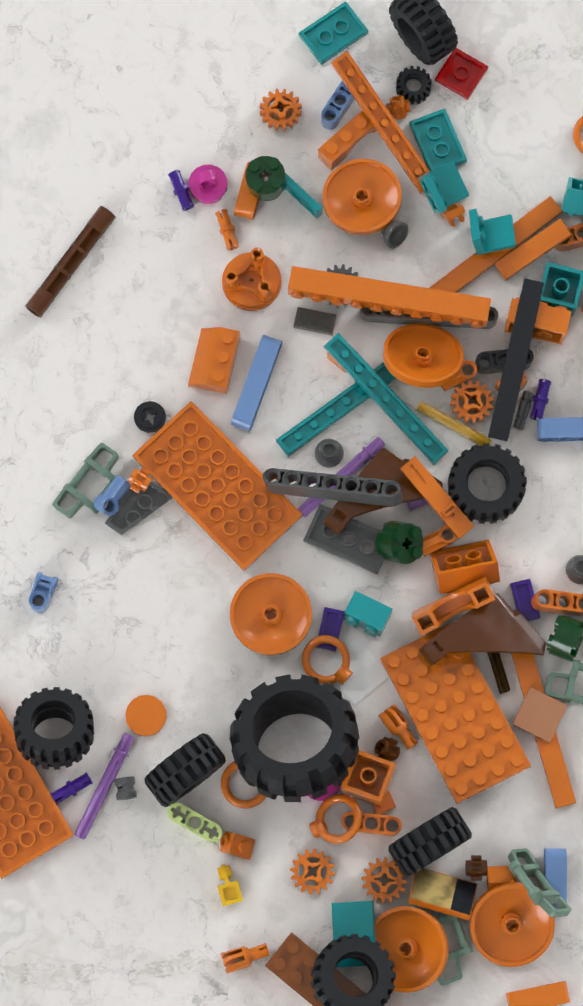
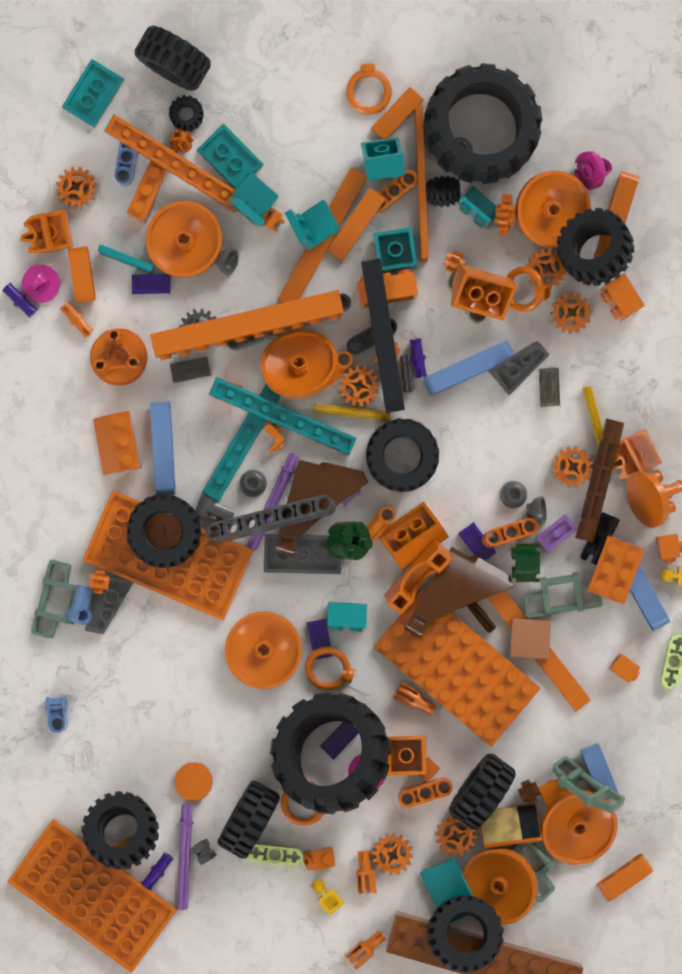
camera: 25 degrees left, 10 degrees up
(154, 409) = (83, 528): black gear -> none
(217, 431) = (137, 531): none -> black tyre
(235, 139) = (48, 232): none -> orange plate
(265, 167) = (80, 261): dark green brick -> none
(276, 881) = (365, 875): none -> orange arm
(277, 457) = (211, 509): none -> dark grey piece
(308, 735) = (339, 739): none -> dark purple tile
(312, 227) = (151, 284): none -> dark purple tile
(319, 828) = (382, 814): orange piece -> none
(371, 412) = (275, 432): none -> orange bracket
(387, 749) = (412, 724): reddish brown gear -> none
(437, 497) = (364, 488): orange piece -> none
(461, 73) = (224, 83): red tile -> none

